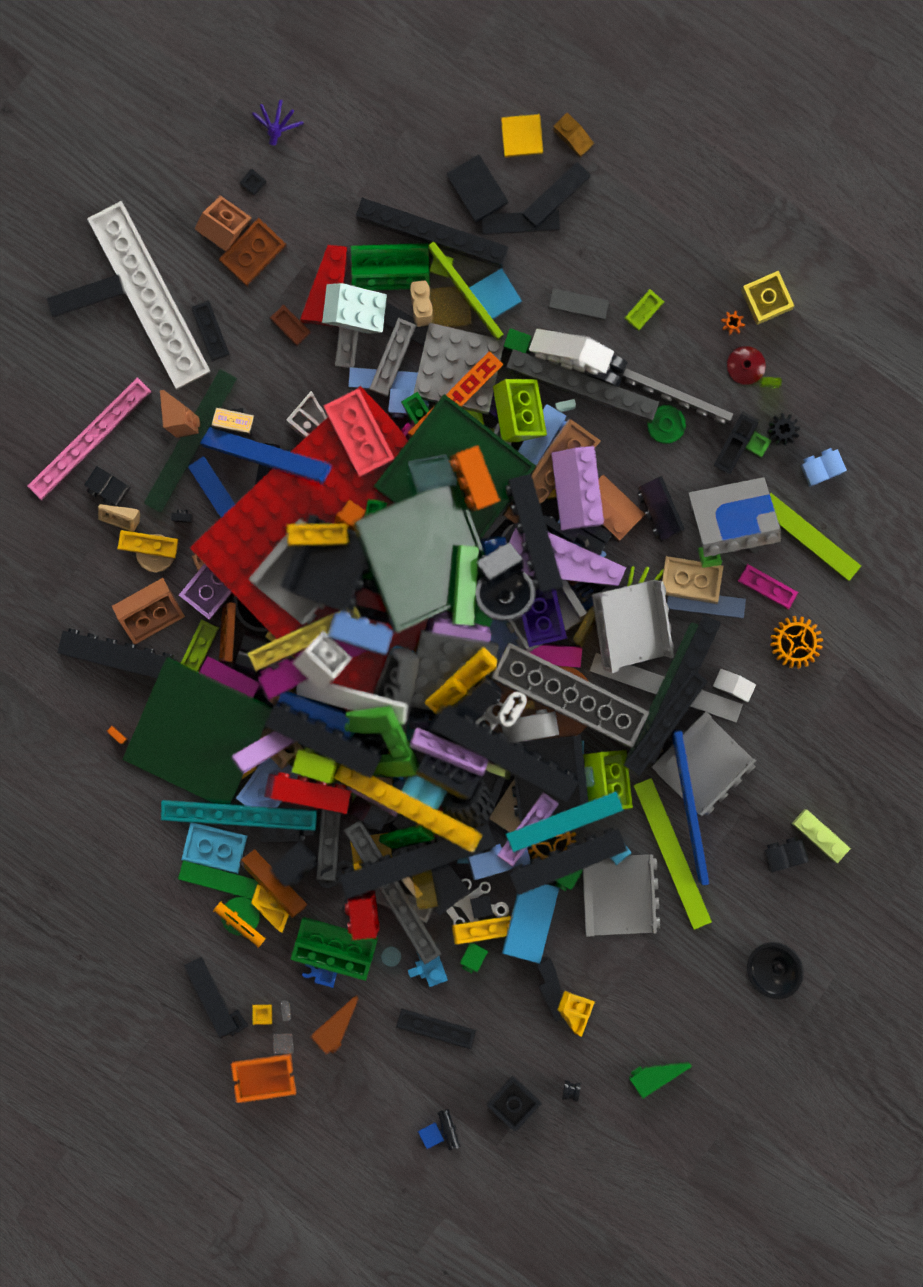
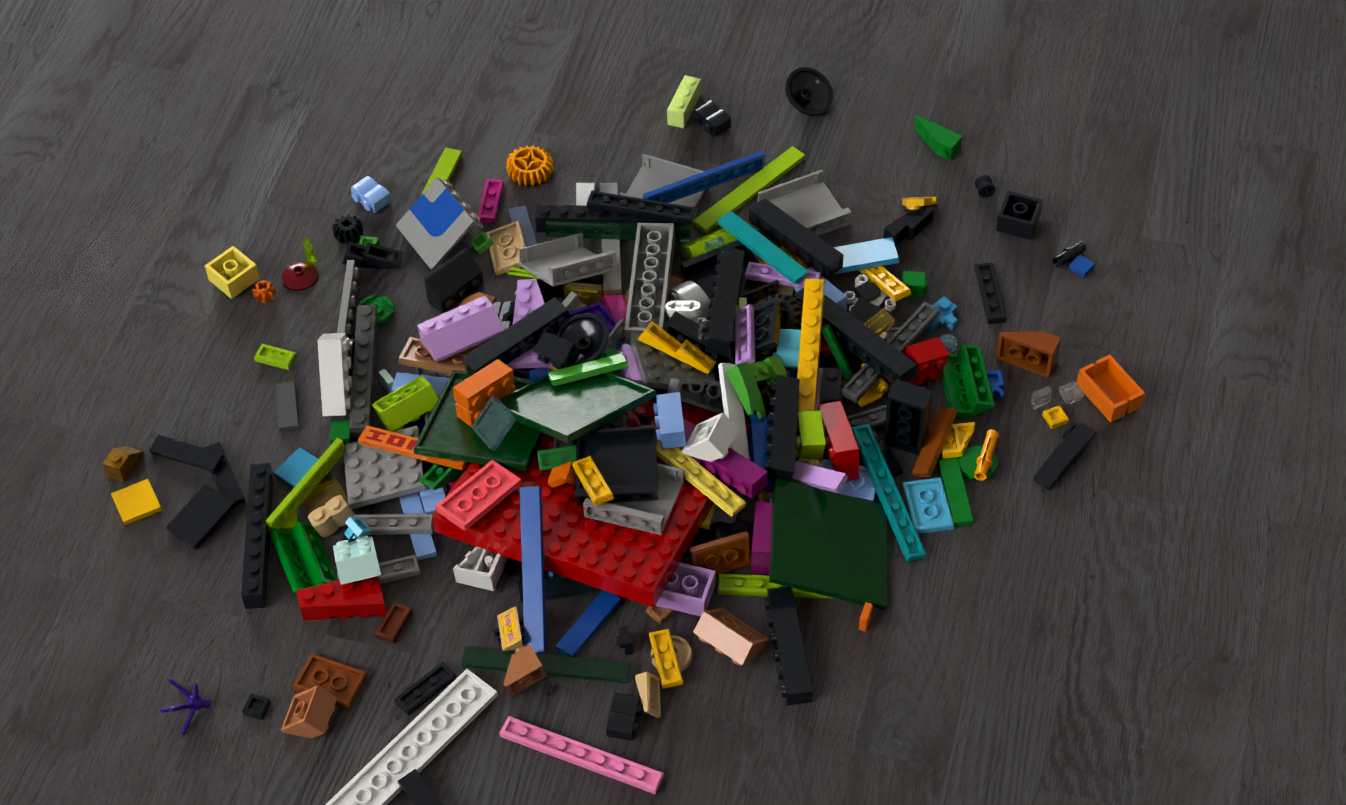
camera: 110 degrees left, 35 degrees down
(392, 320) = (356, 528): none -> medium azure tile

